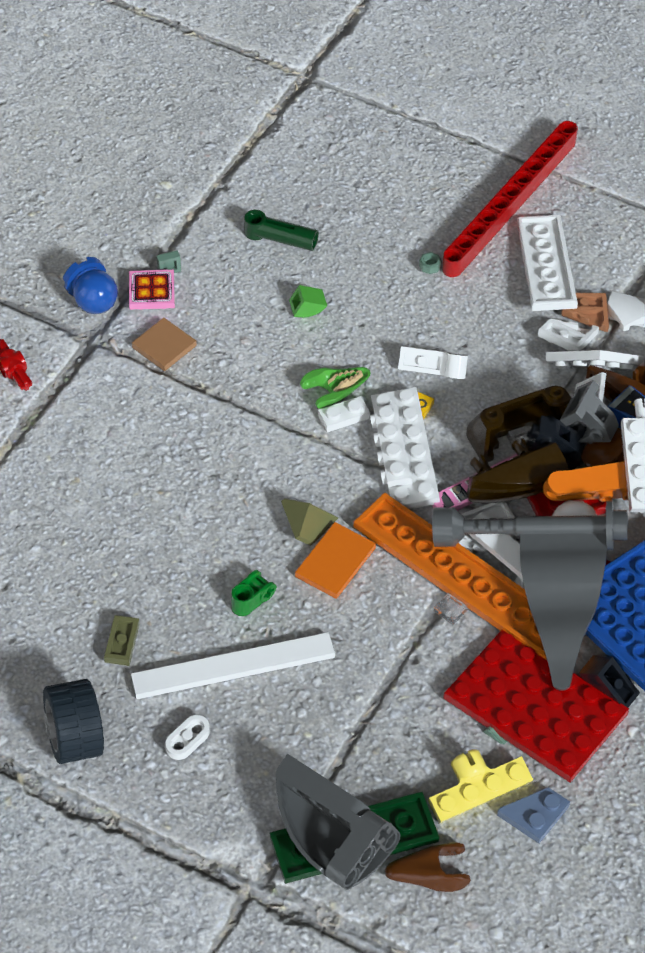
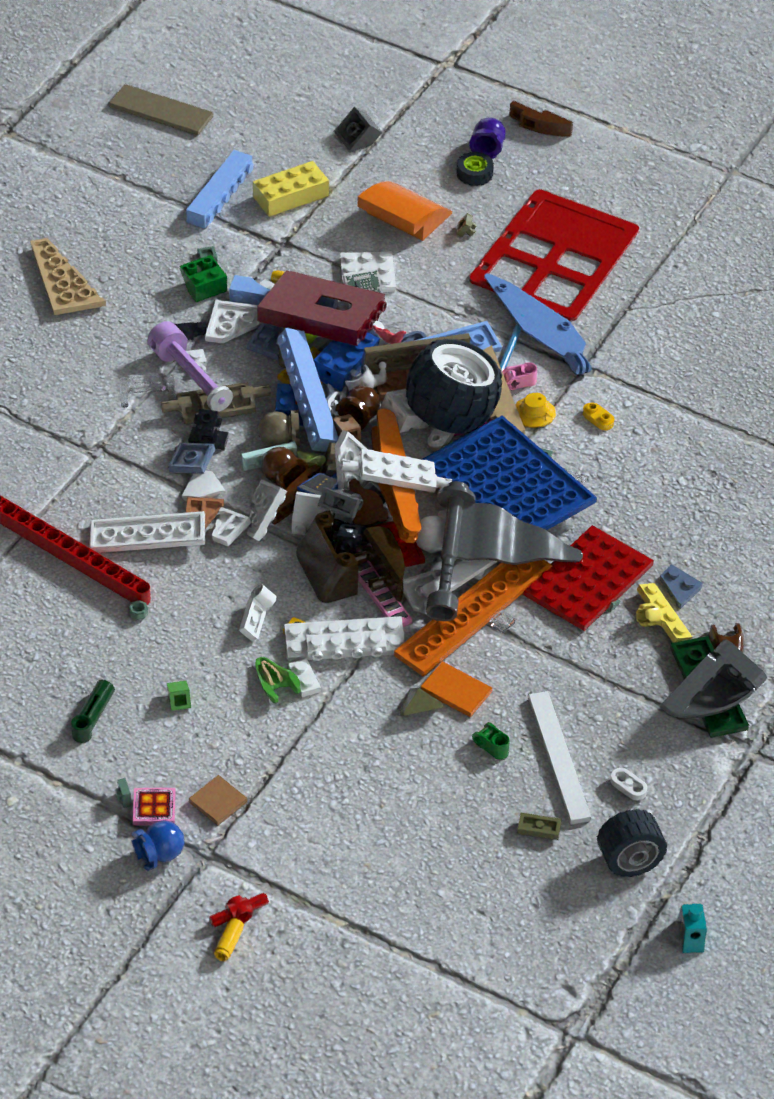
camera: 90 degrees left, 5 degrees down
(610, 679) = (569, 530): black slope -> none

